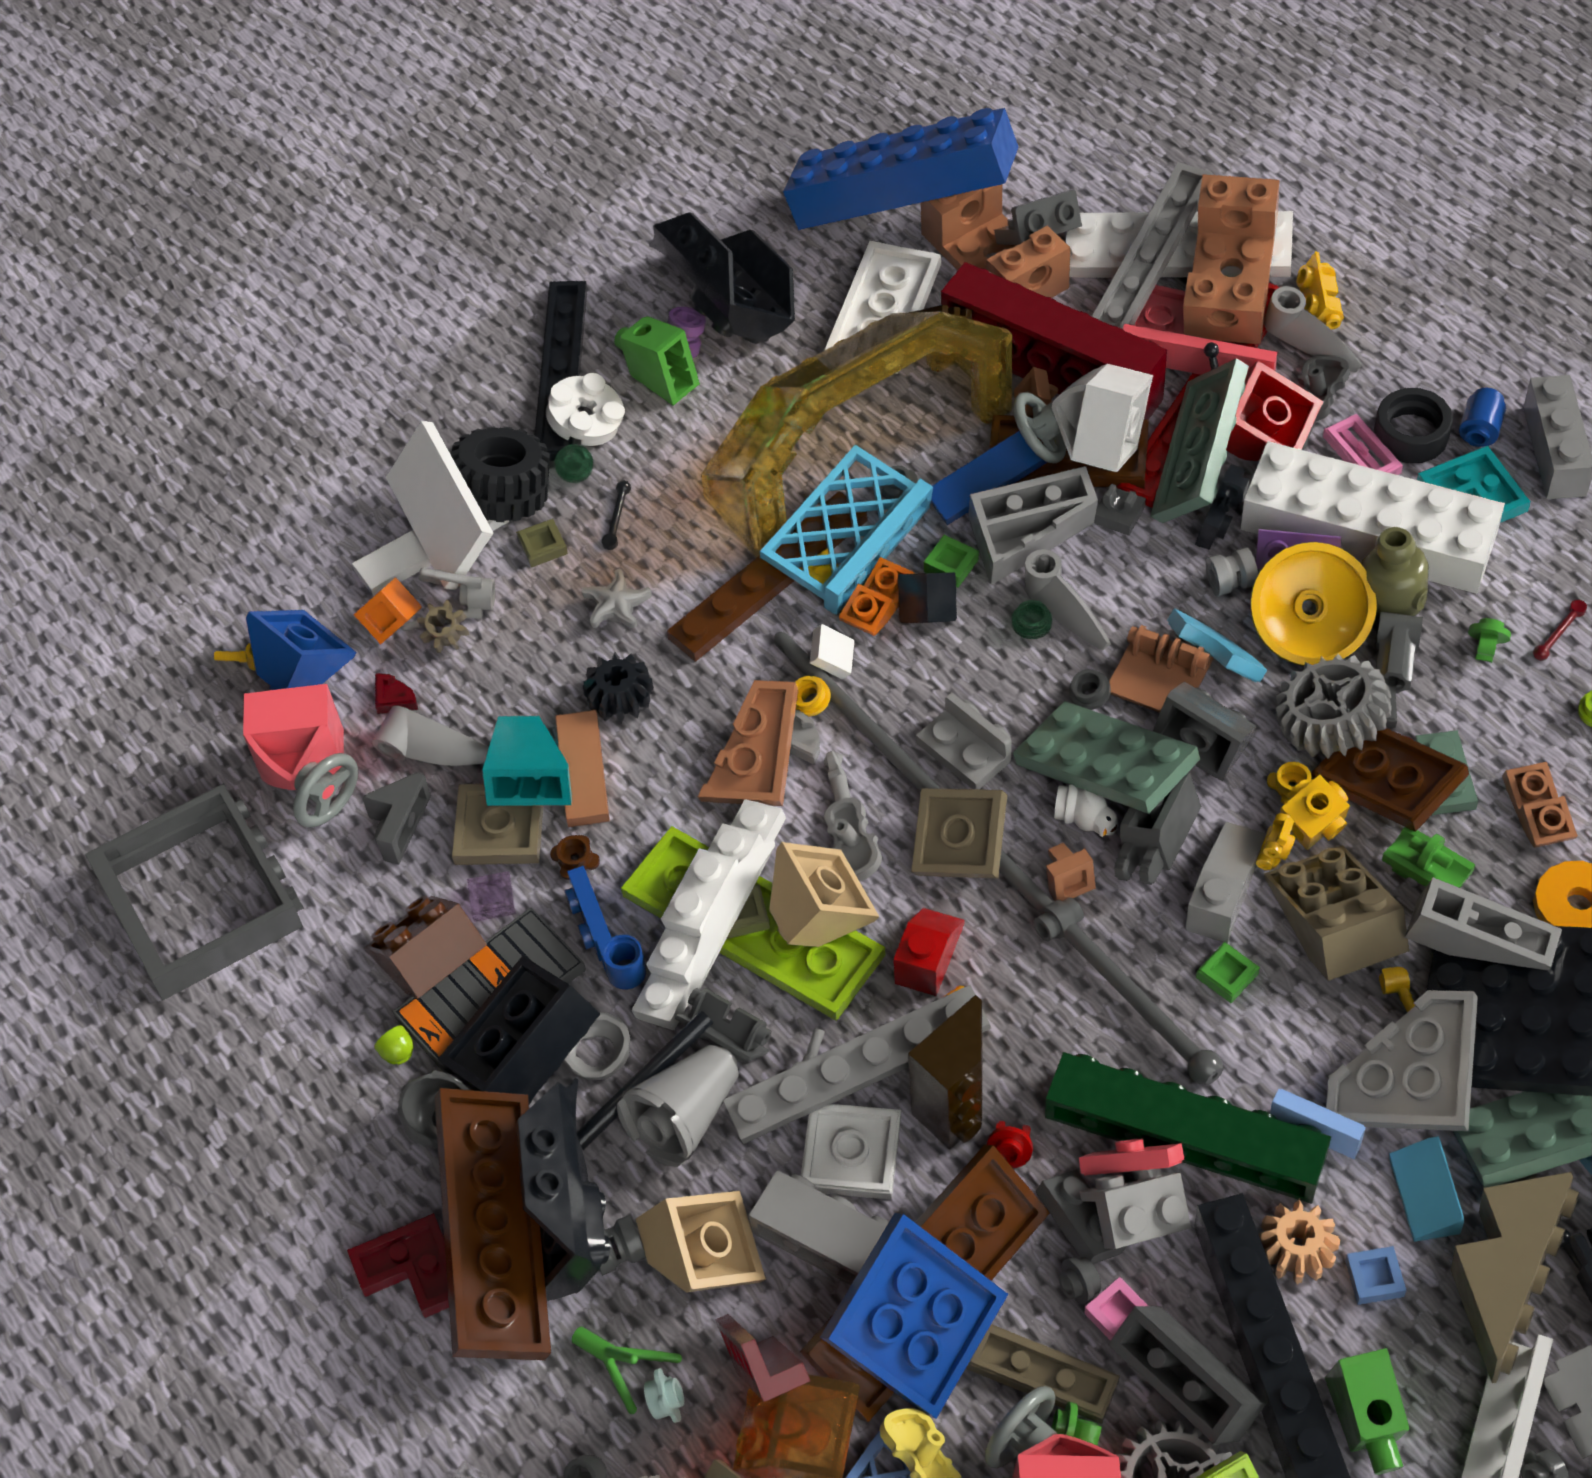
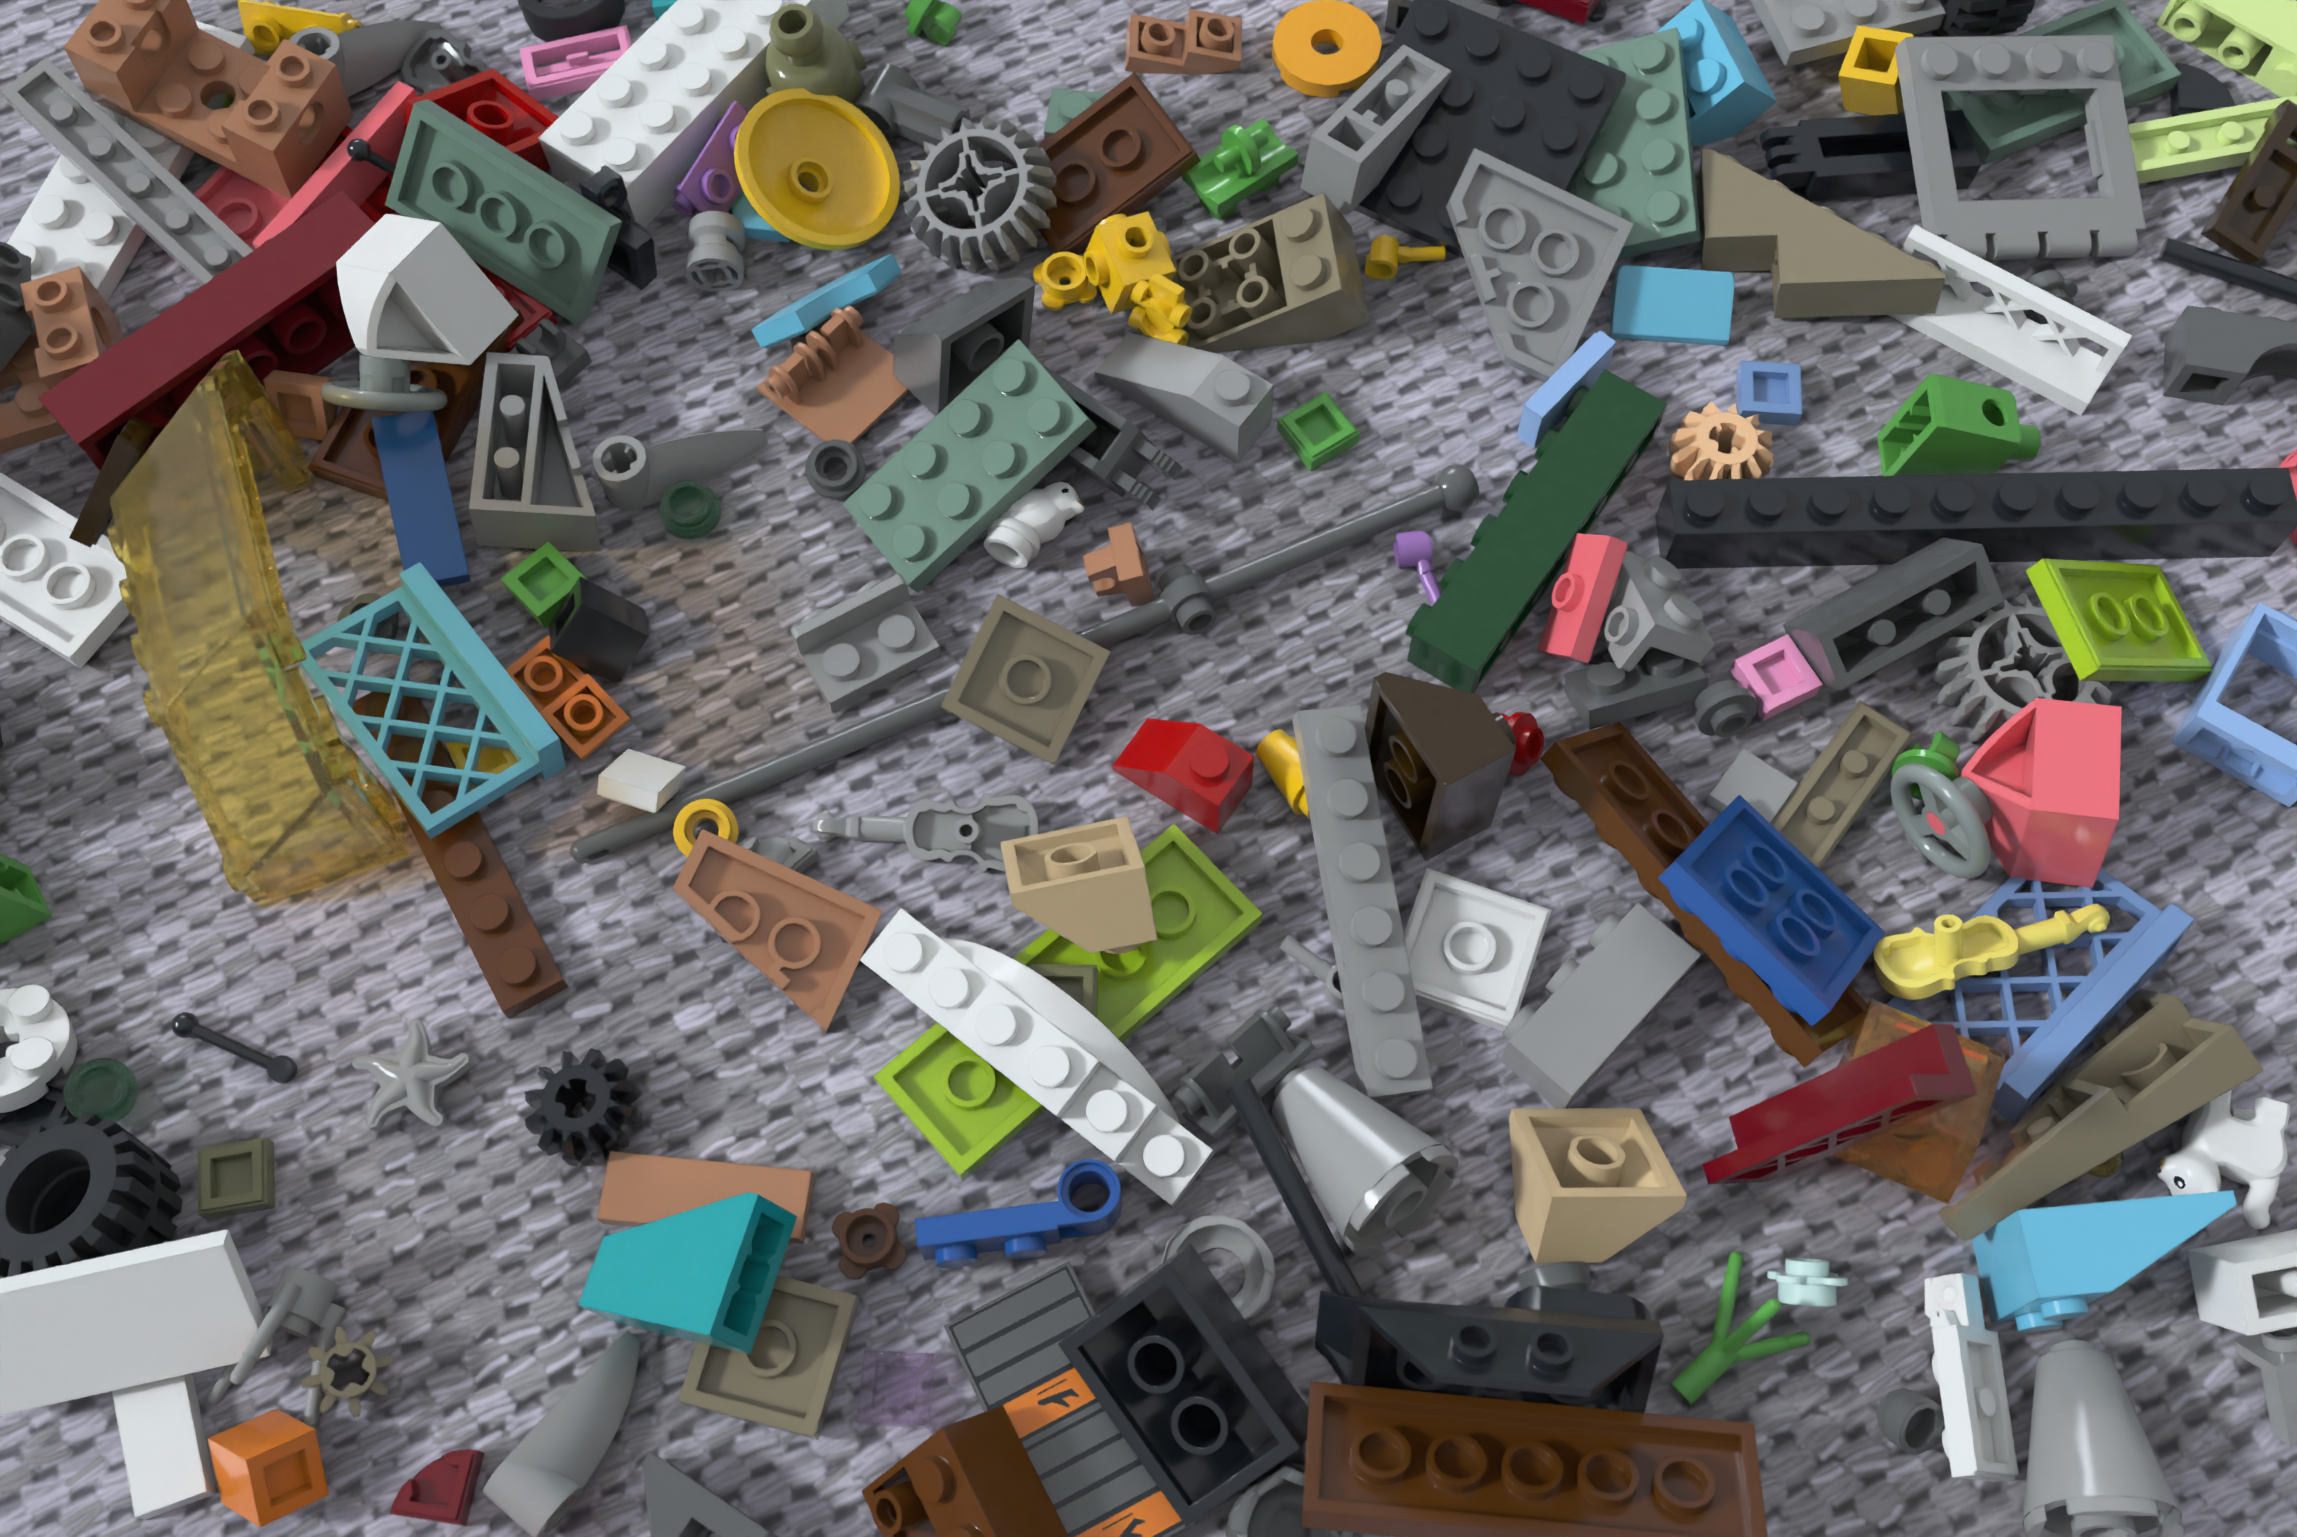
camera: 80 degrees left, 10 degrees up
(1023, 1312) = (1756, 782): none -> light grey tile
(1147, 1054) = (1414, 550): none -> medium lavender hand

